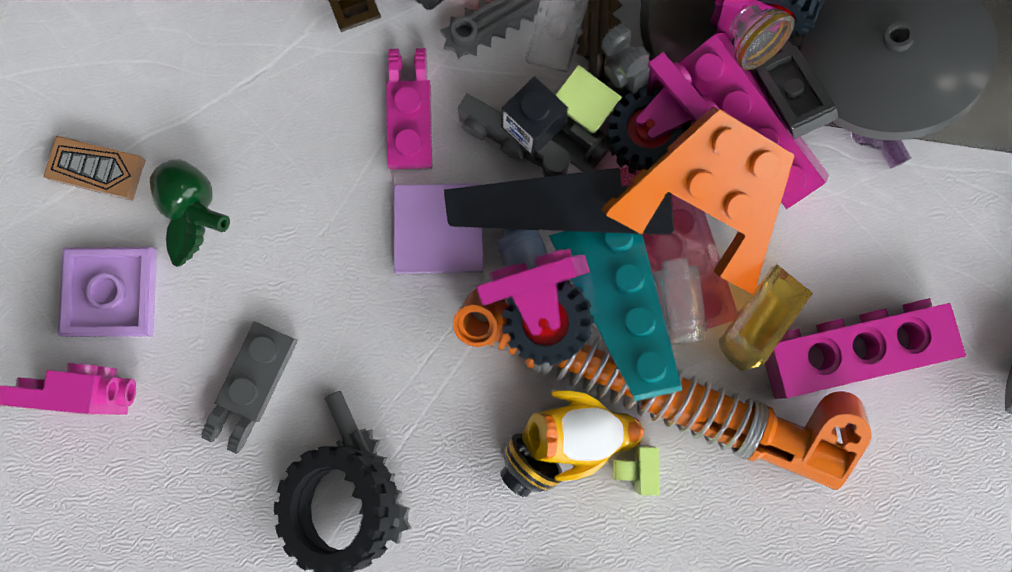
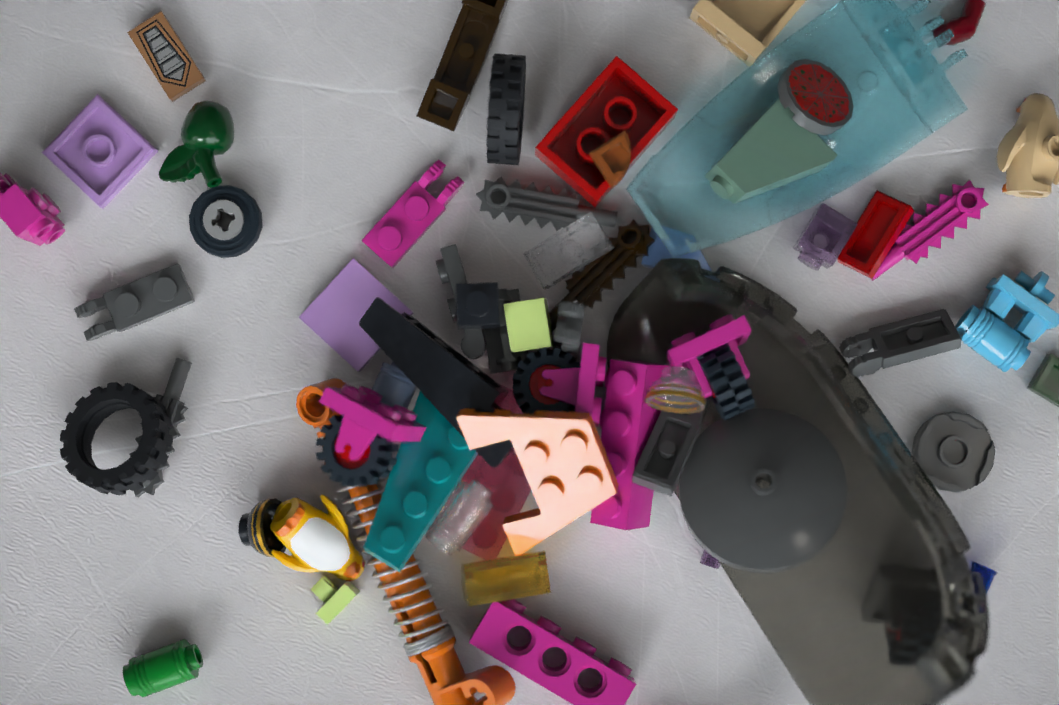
camera: 40 degrees right, 5 degrees up
(276, 261) = (230, 235): none -> black wheel

